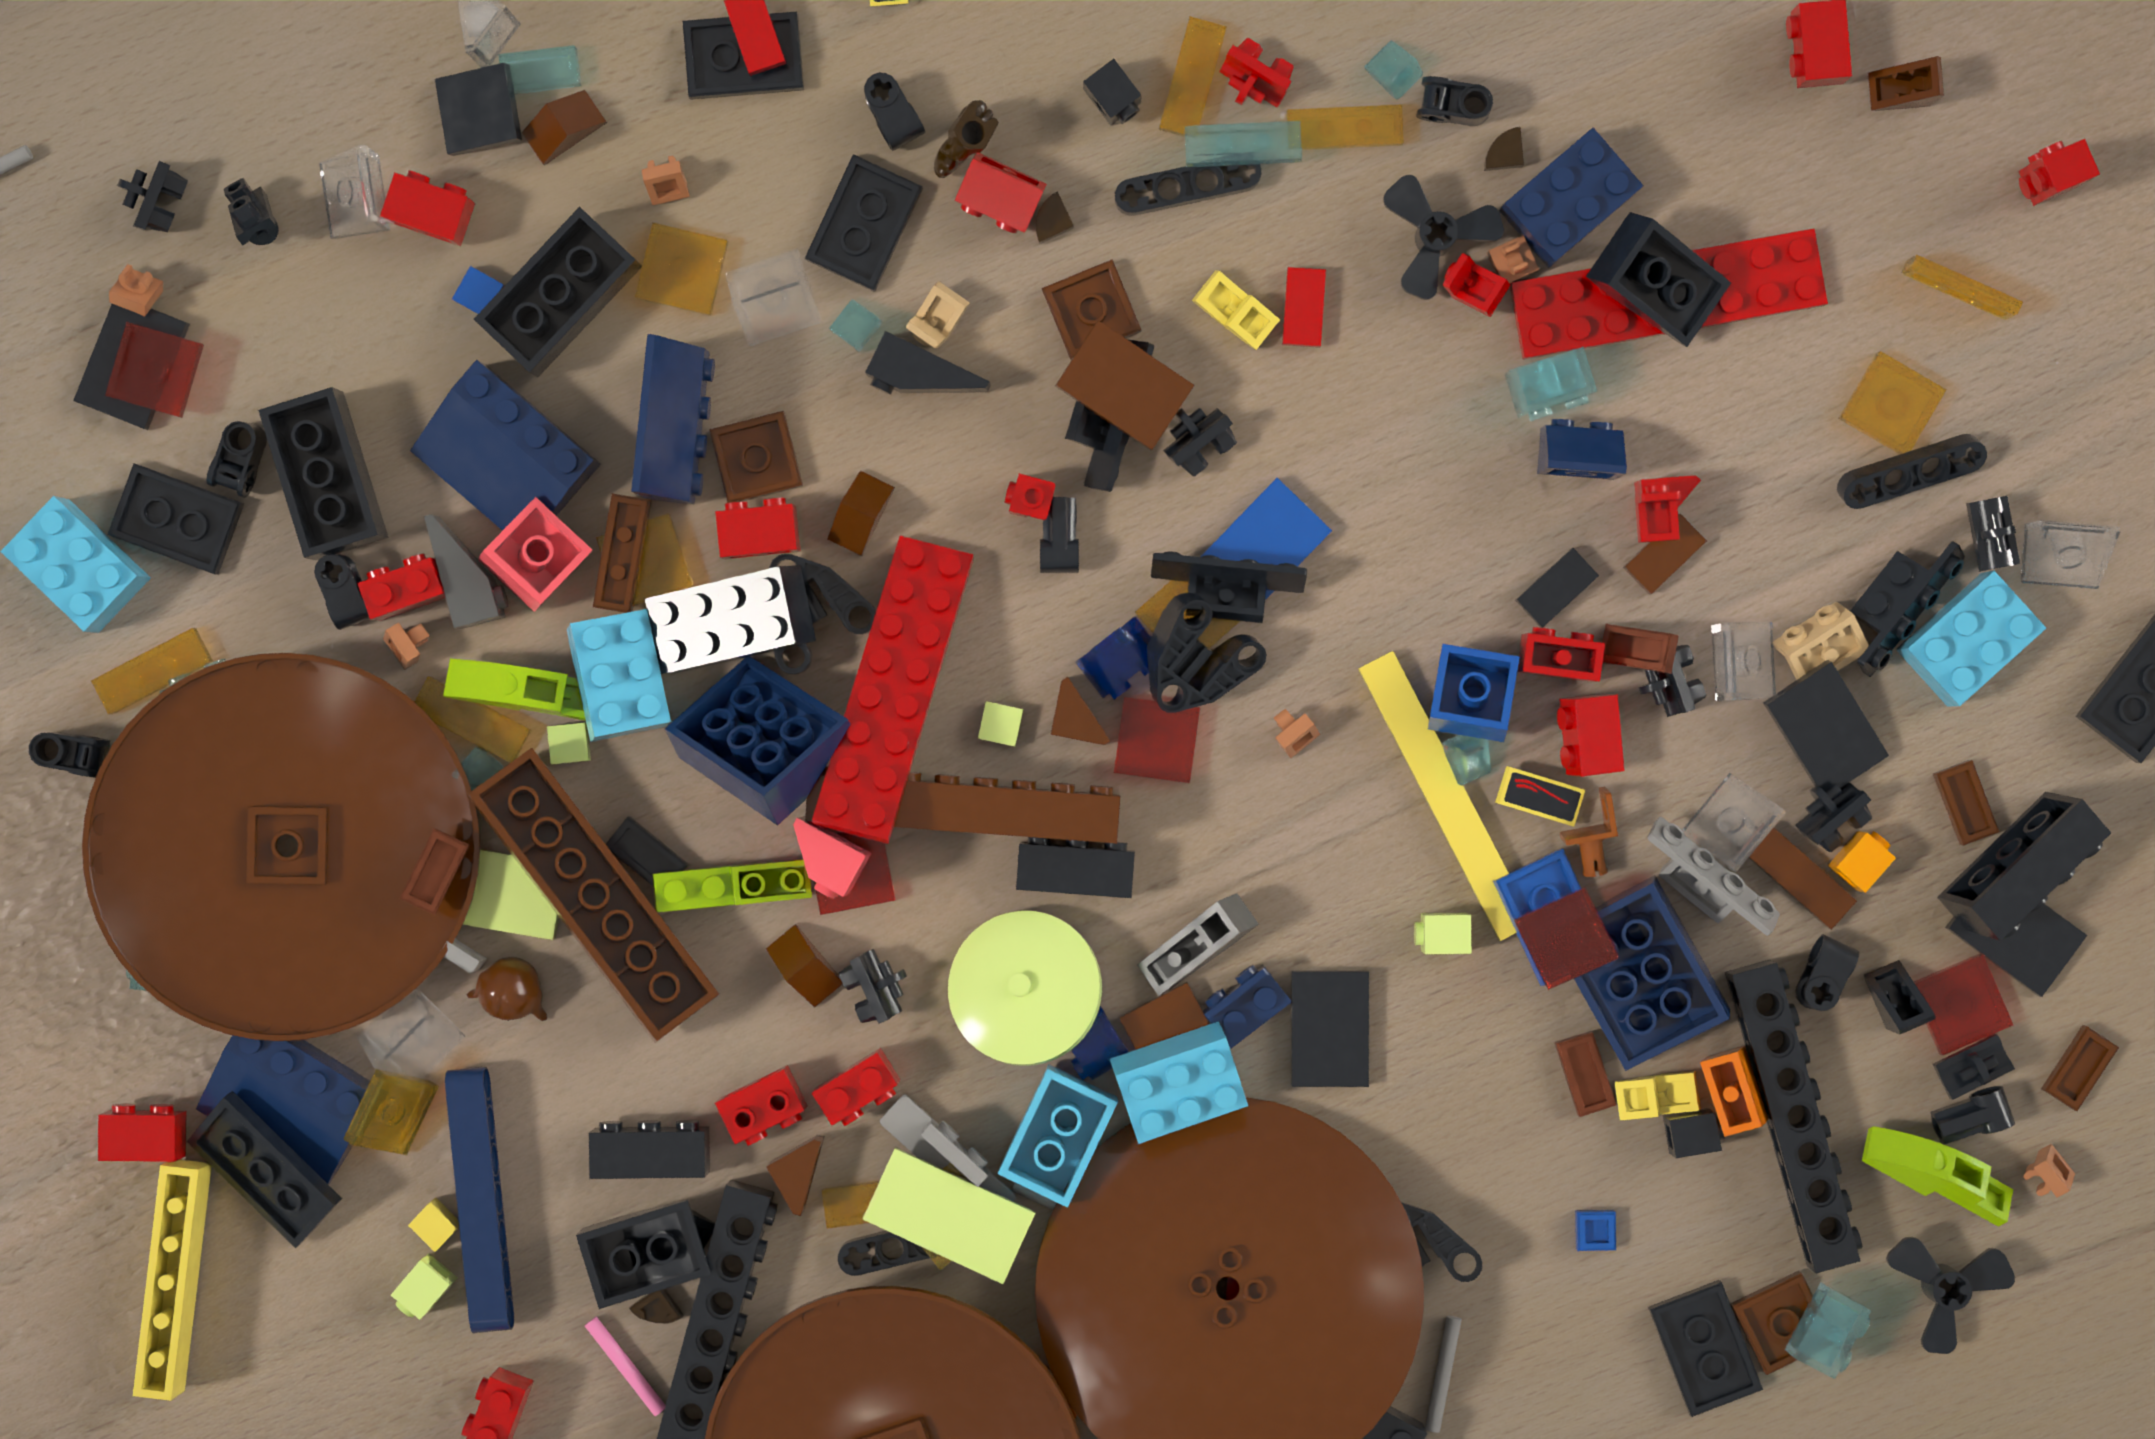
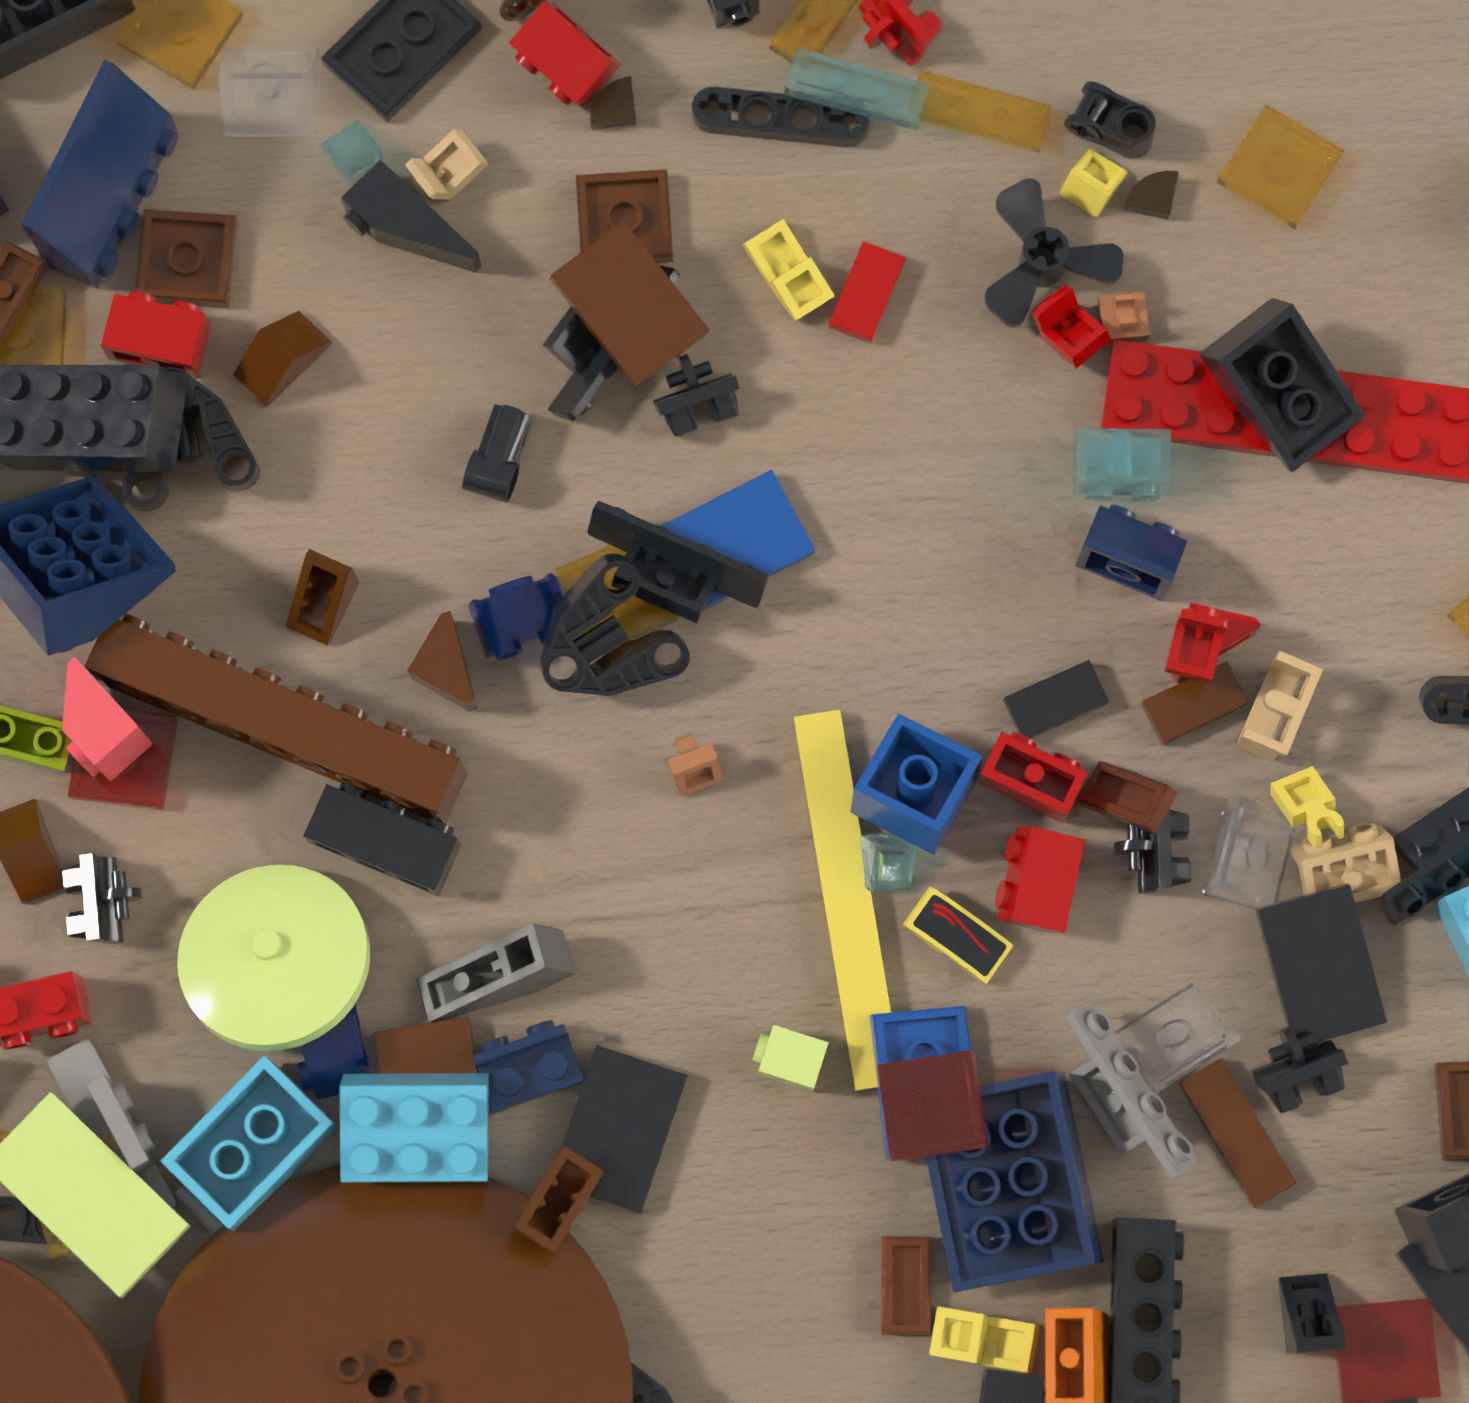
camera: 15 degrees right, 10 degrees down
(893, 689) = (241, 557): red plate -> none
(961, 698) = (321, 597): none -> reddish brown slope
(1000, 723) = (356, 646): yellowish green tile -> none
(1030, 497) = (478, 396): red bracket -> none
(1156, 741) = (530, 724): clear red tile -> none
(1304, 1101) = (557, 1199): none -> reddish brown slope
(1394, 69) = (1057, 67): clear light blue slope -> none
(1453, 156) = (1092, 182): none -> light yellow slope
(1571, 197) = (1211, 265): dark blue brick -> none
(1591, 837) = (1001, 1006): dark orange bracket -> none
(1598, 94) = (1280, 166): none -> clear yellow tile
(1734, 539) = (1279, 707): none -> tan window
(1777, 604) = (1308, 800): none -> light yellow plate
(1827, 968) = (1238, 1252): black piece -> none
(1862, 860) = (1318, 1135): light orange brick -> none

